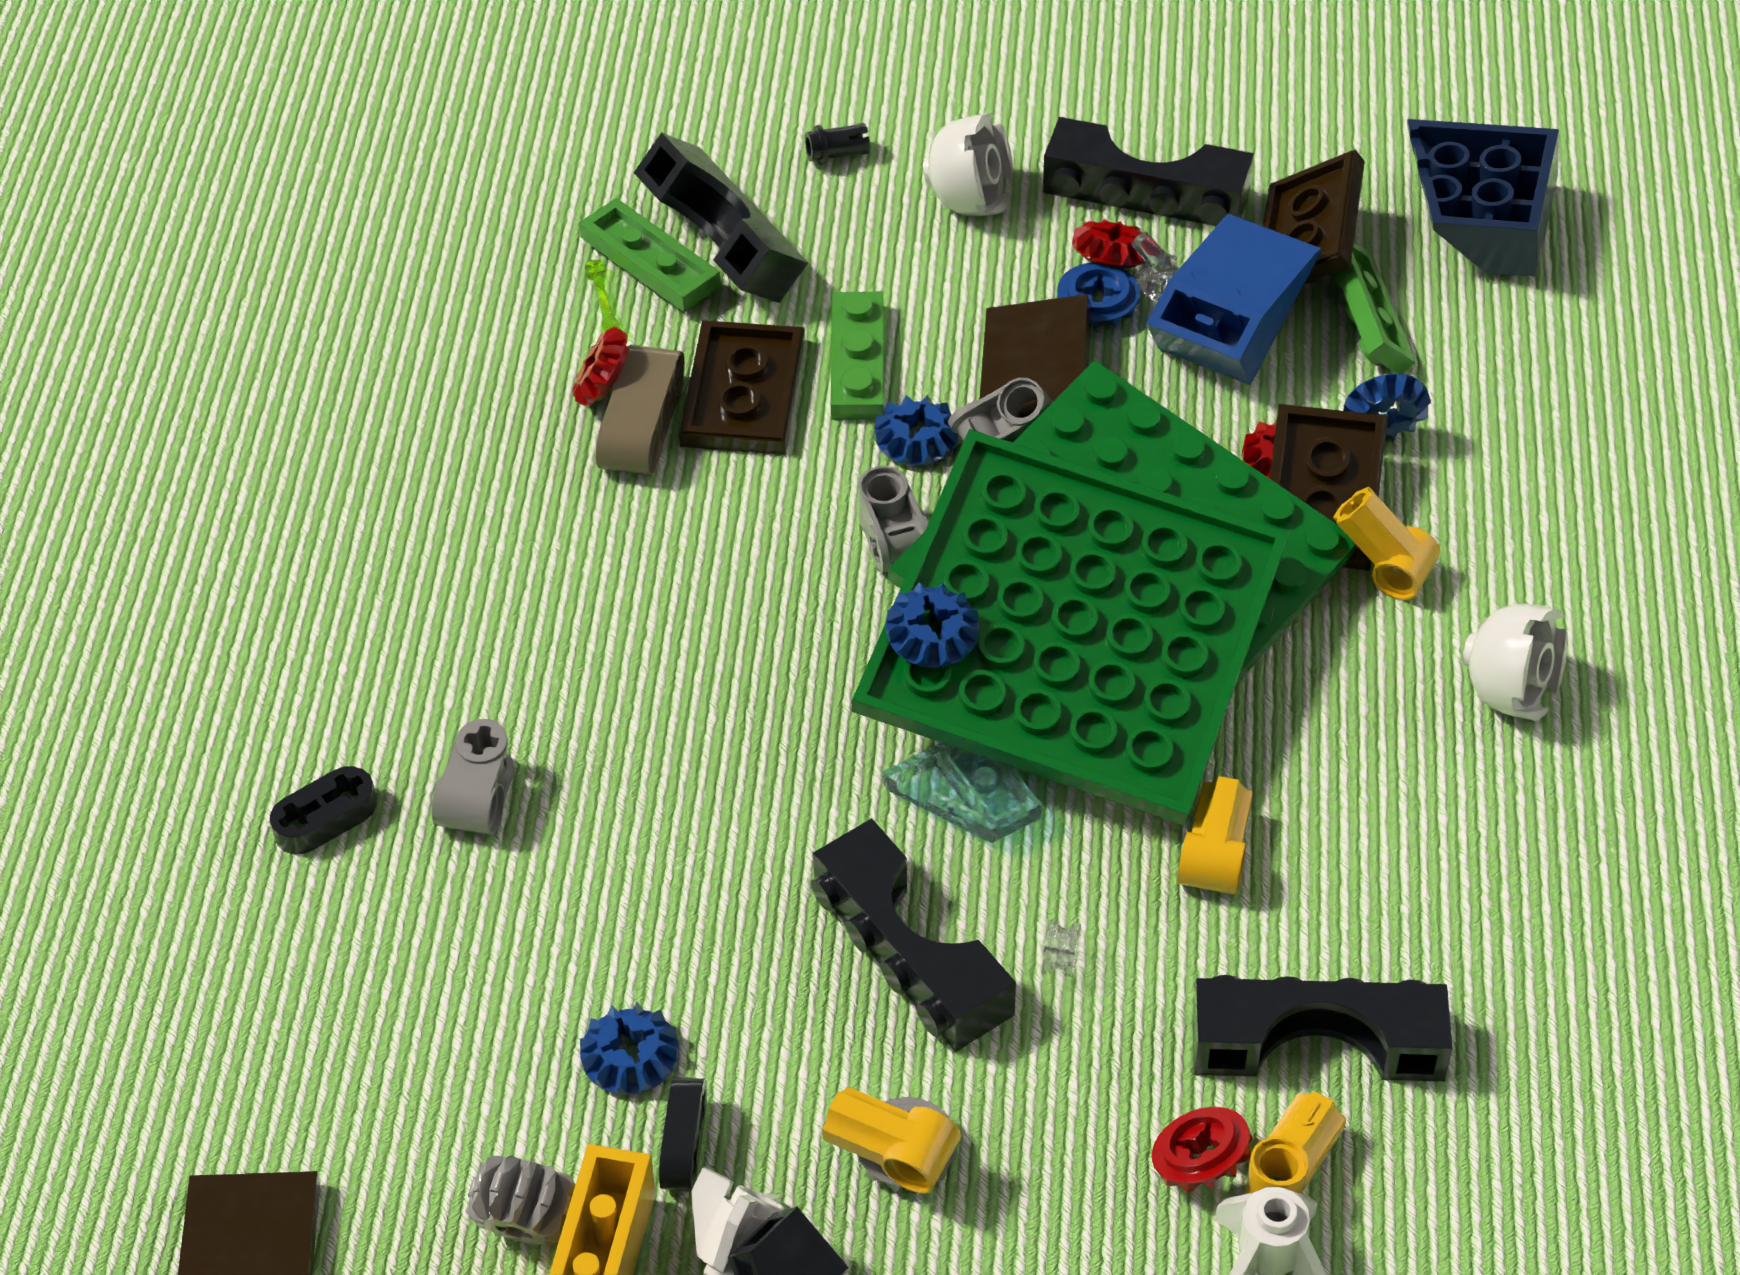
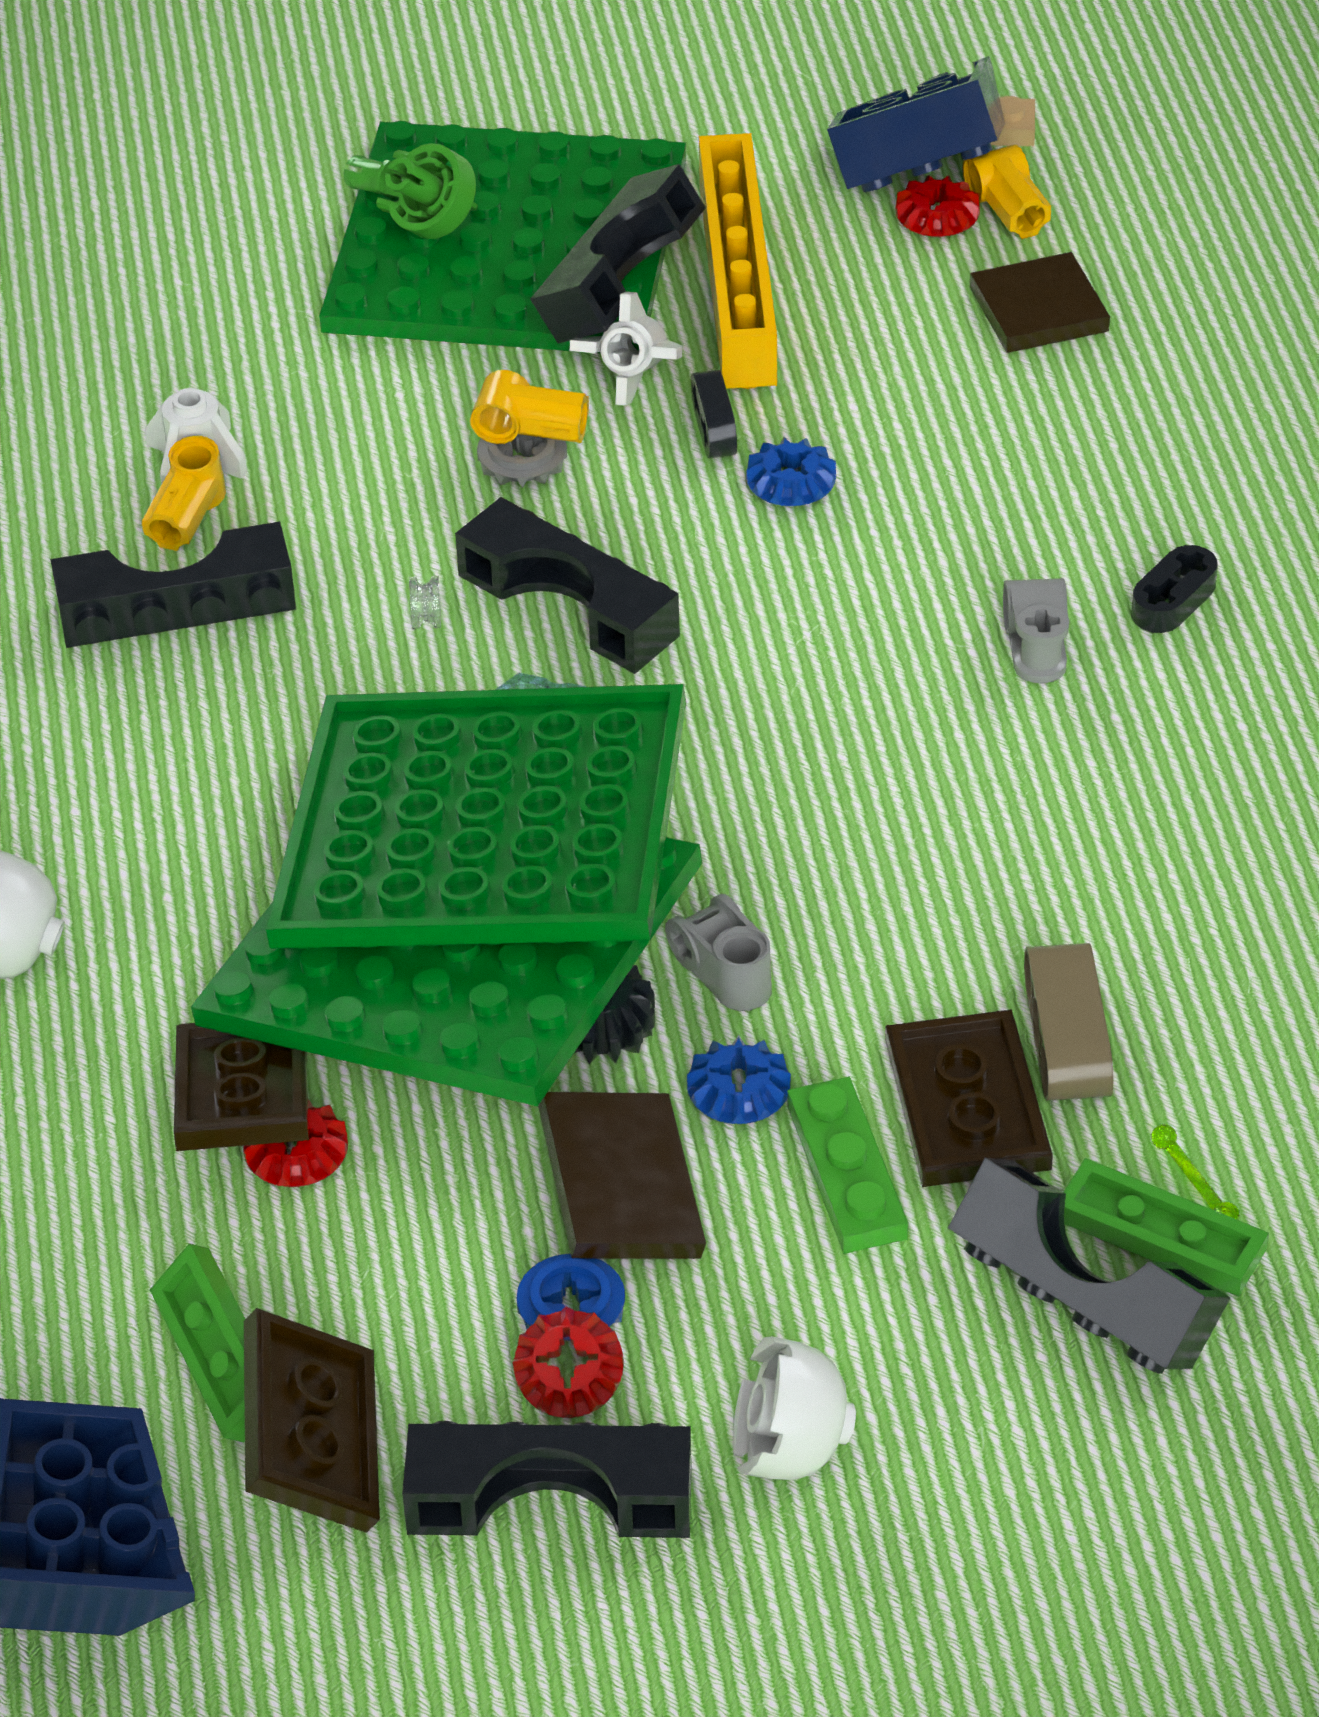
camera: 165 degrees right, 5 degrees down
(520, 1200) = (820, 344): light grey gear -> none
(601, 367) = (1133, 1038): red gear -> none
(836, 142) = (994, 1451): black pin -> none
(919, 643) = (603, 748): blue gear -> none
(999, 411) = (630, 1059): light grey piece -> none
(1159, 268) = (493, 1338): clear plate -> none
(1192, 1135) = (285, 478): red gear -> none
(1215, 847) = (294, 713): yellow piece -> none
(1232, 297) = (390, 1258): blue slope -> none
(1382, 392) = (159, 1195): blue gear -> none
(1400, 553) = (157, 1013): yellow piece -> none

